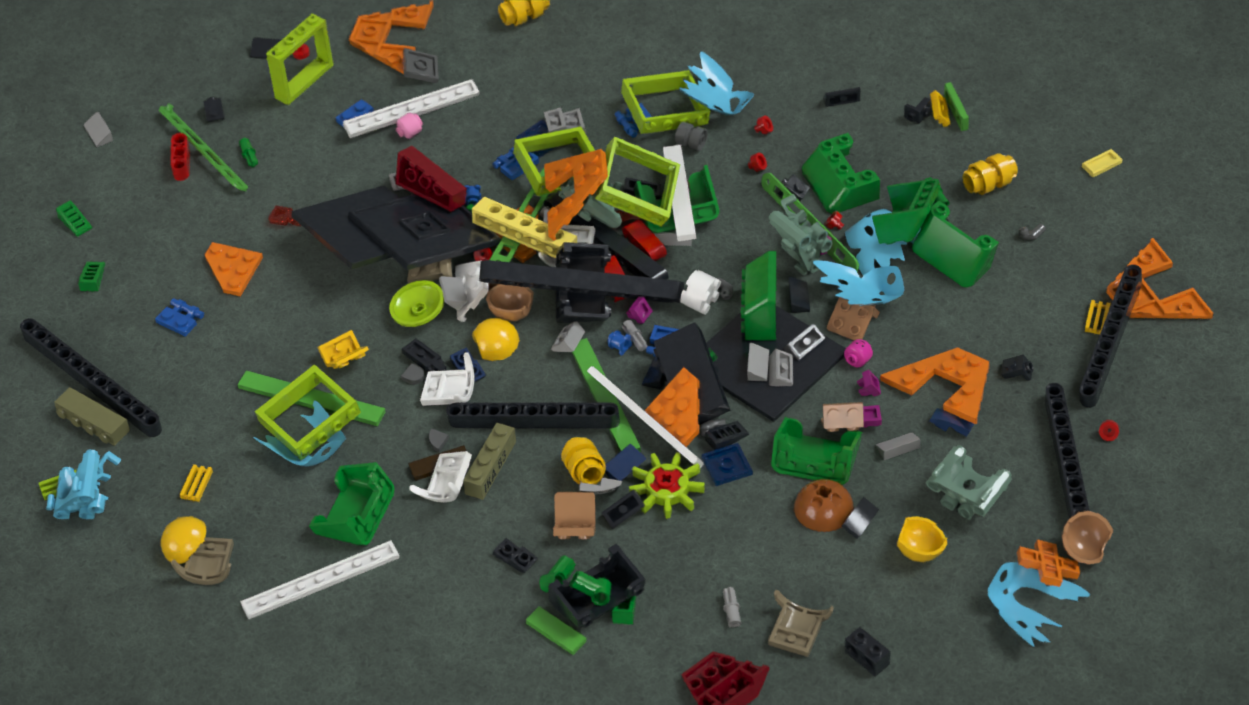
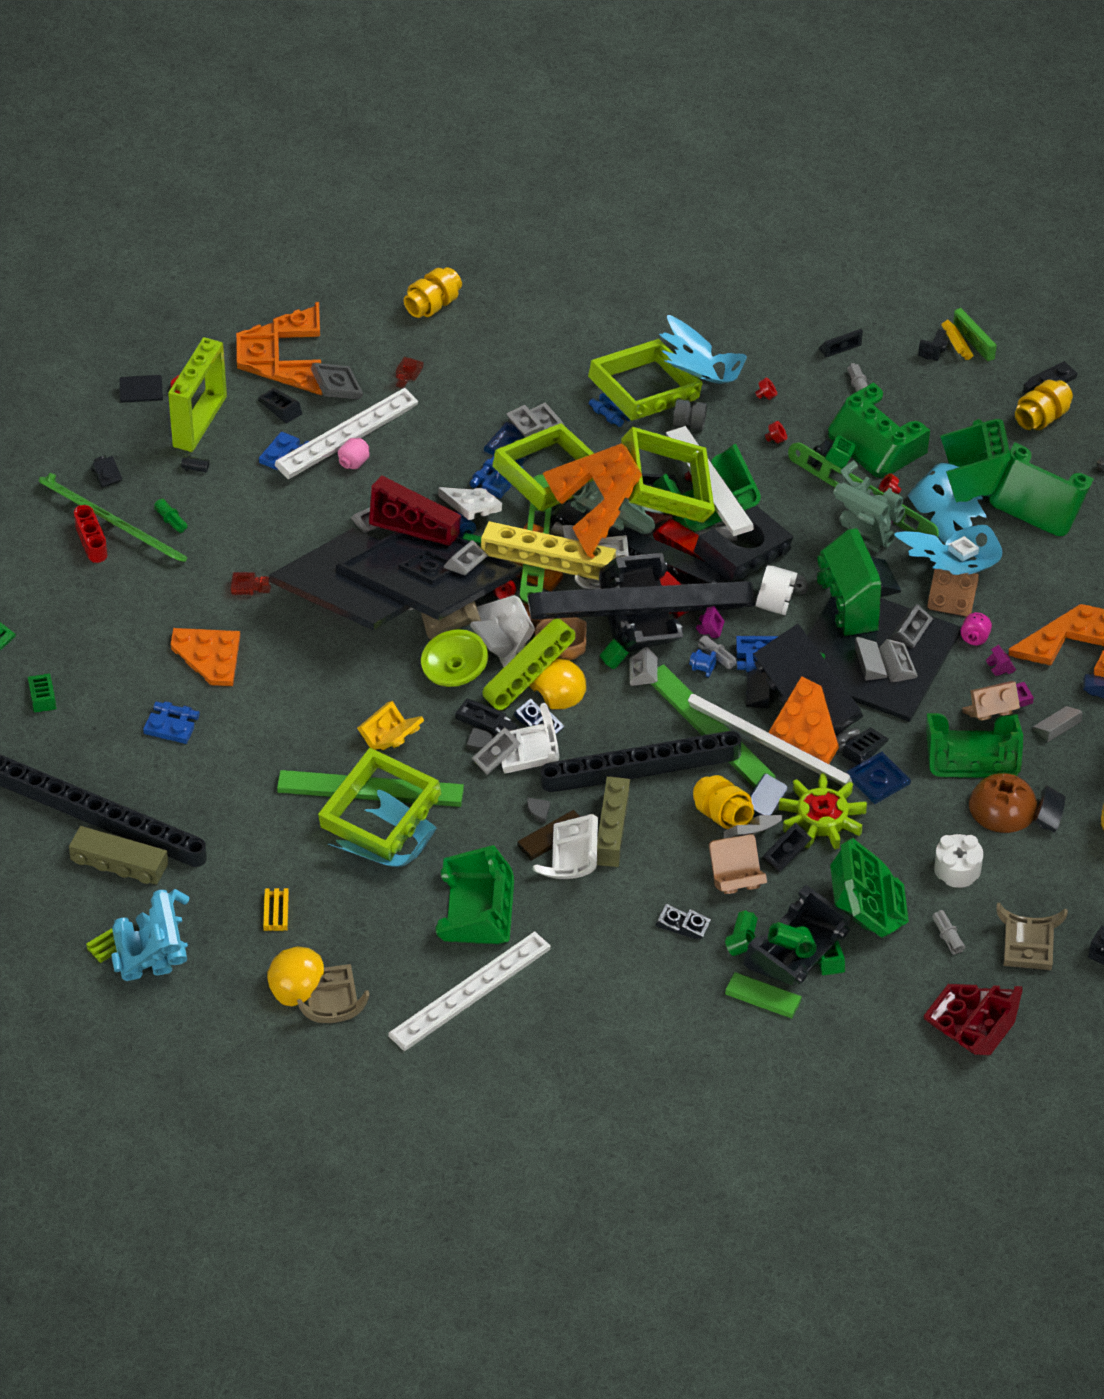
camera: 20 degrees left, 0 degrees up
(280, 112) = (195, 463): none -> black pin
(373, 81) = (286, 413): none -> black slope
(419, 385) = (495, 751): none -> light grey slope
(455, 224) = (466, 558): none -> light grey slope
(463, 322) = (528, 664): none -> lime beam
(481, 65) = (407, 370): none -> clear red plate
(484, 178) = (470, 501): none -> white wing
(549, 323) = (613, 654): none -> green slope
(673, 557) = (867, 890): none -> green piece
(676, 263) = (735, 561): none -> black arch
(763, 547) = (958, 860): none -> white brick
(800, 185) = (840, 452): none -> green slope
(844, 126) = (858, 380): none -> light grey axle
(874, 283) = (963, 549): none -> white tile
(1016, 150) = (1058, 372): none -> black hinge

